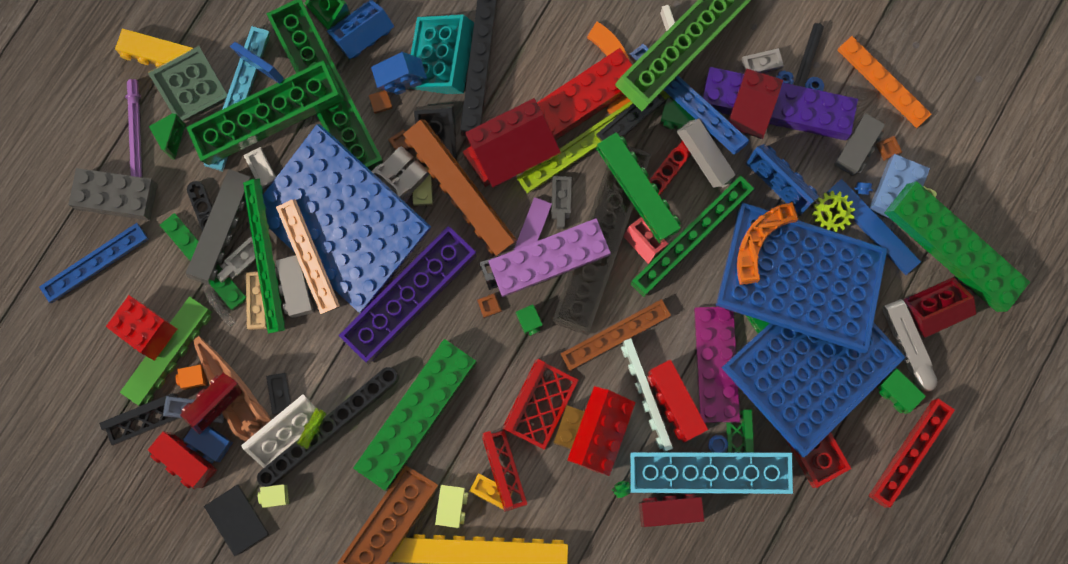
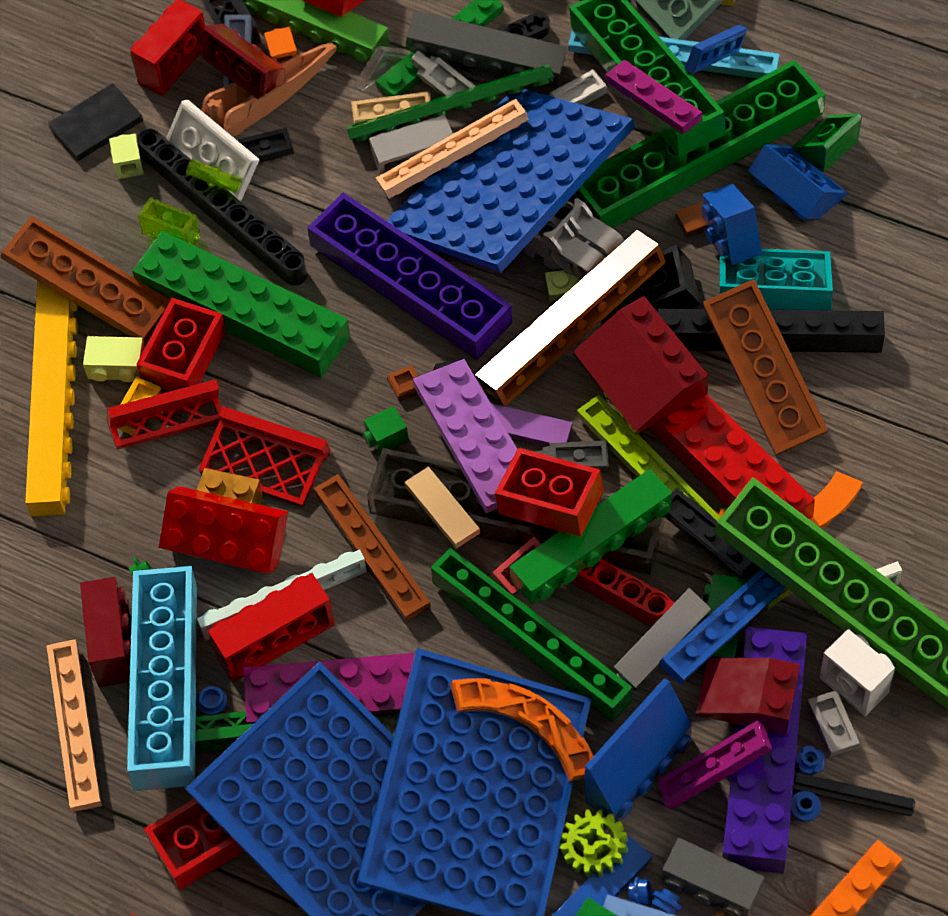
camera: 90 degrees right, 20 degrees down
(208, 442) = (194, 78): blue brick -> none
(302, 106) = (653, 97): none -> magenta plate
(344, 463) = (163, 217): none -> clear neon green brick
(450, 457) = (181, 346): none -> red brick
(513, 66) = (764, 367): none -> dark orange plate
(604, 282) = (442, 507): none -> tan tile
(615, 207) = (549, 492): none -> red brick
(729, 536) = (74, 726): none -> light nougat plate
(736, 40) = (857, 672): none -> white brick
(795, 131) = (714, 764): none -> magenta plate
(871, 173) = (666, 901): none -> blue plate

